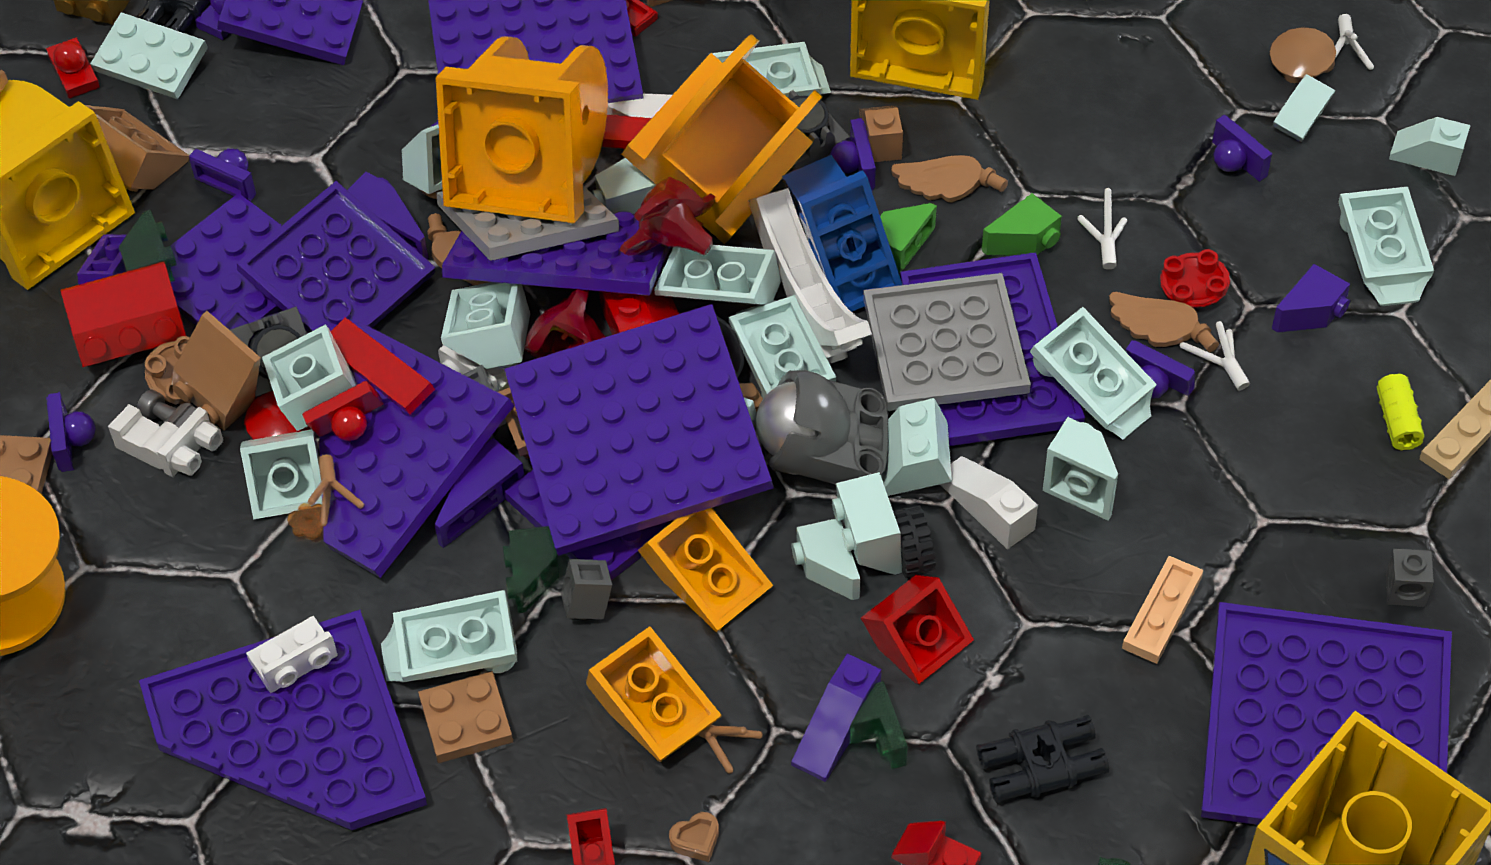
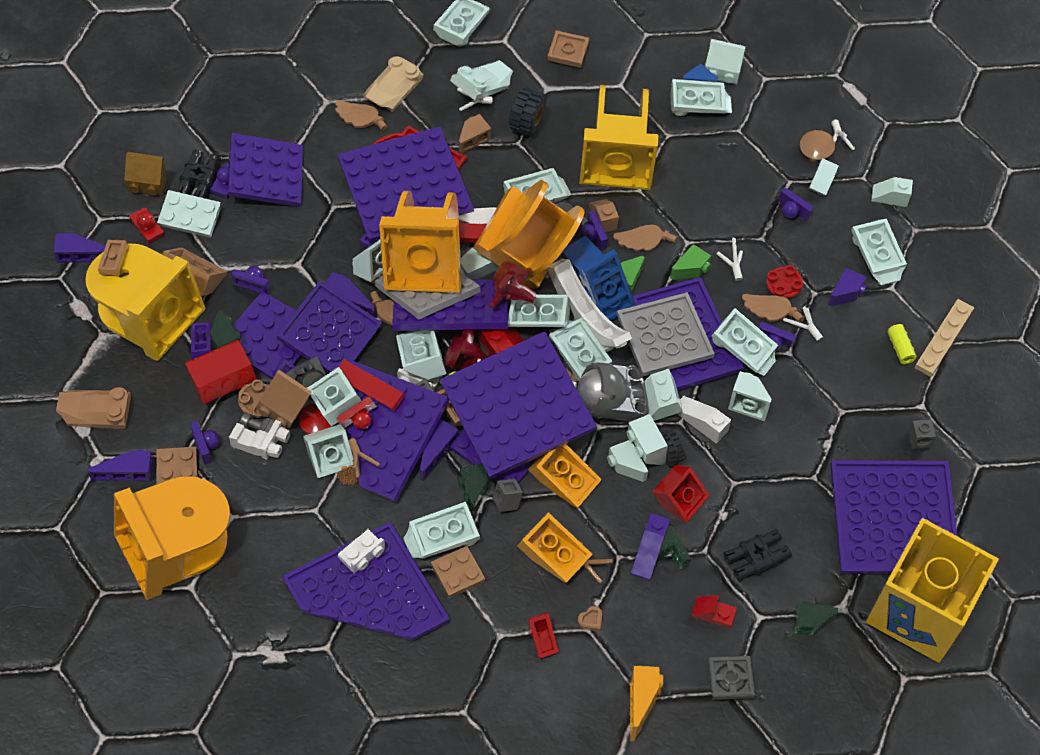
camera: 15 degrees left, 5 degrees up
(1162, 609) = (802, 467): light nougat plate -> none

